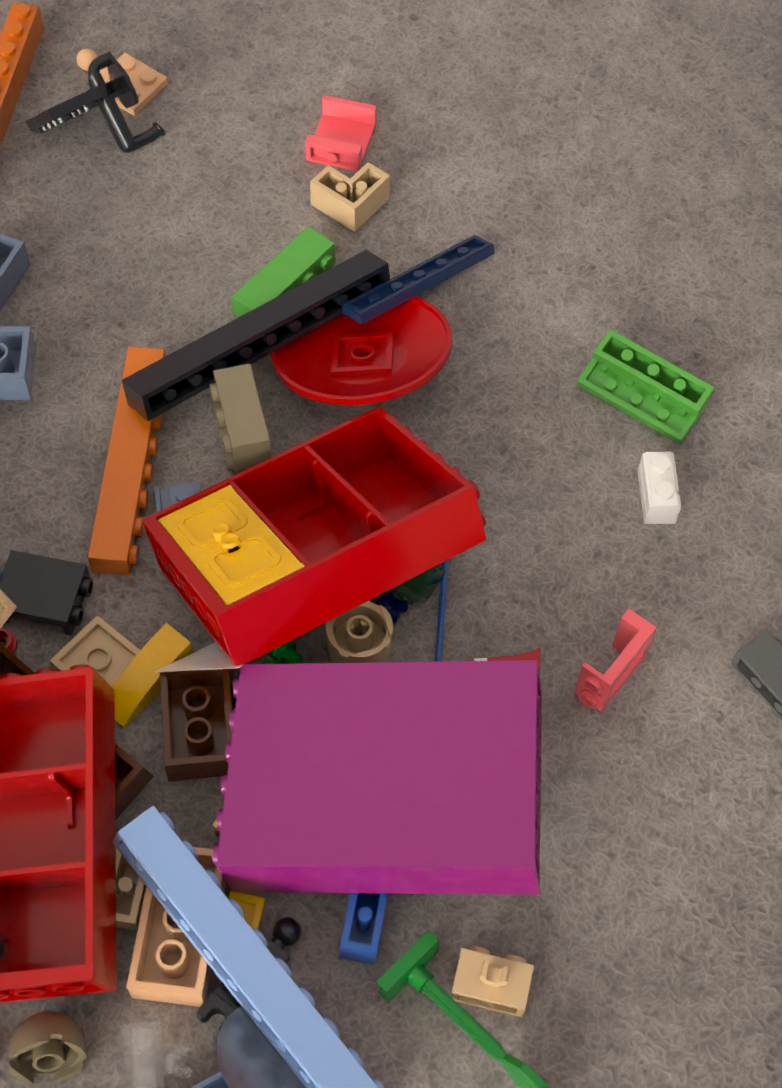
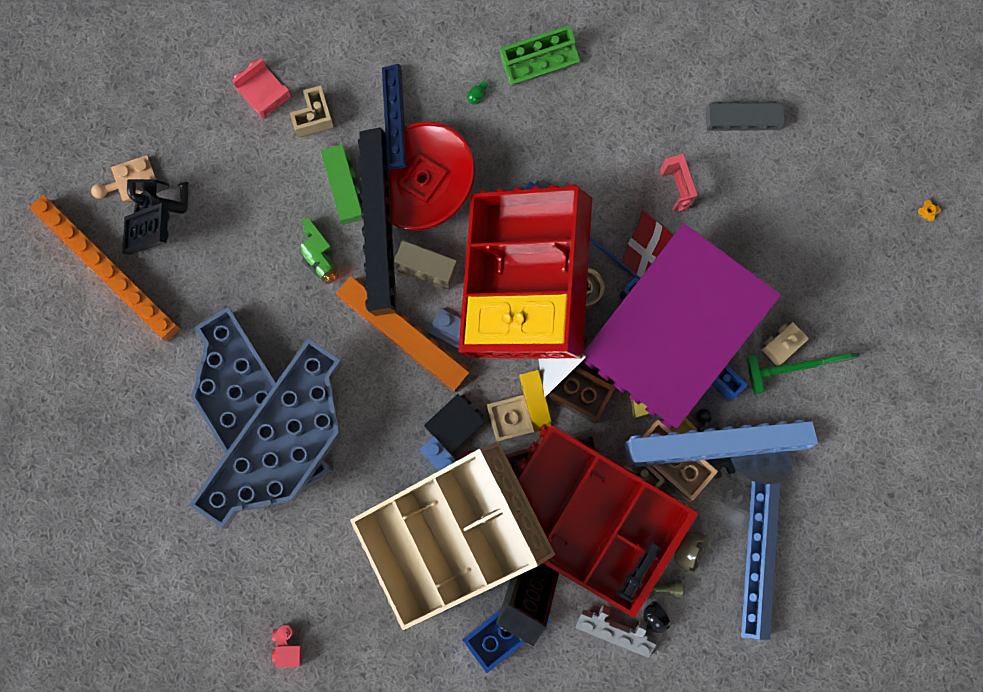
camera: 60 degrees left, 20 degrees up
(172, 301) = (315, 254): none -> bright green plate
(532, 352) = (477, 93): none -> green cylinder
(659, 488) = (599, 92): white brick -> none

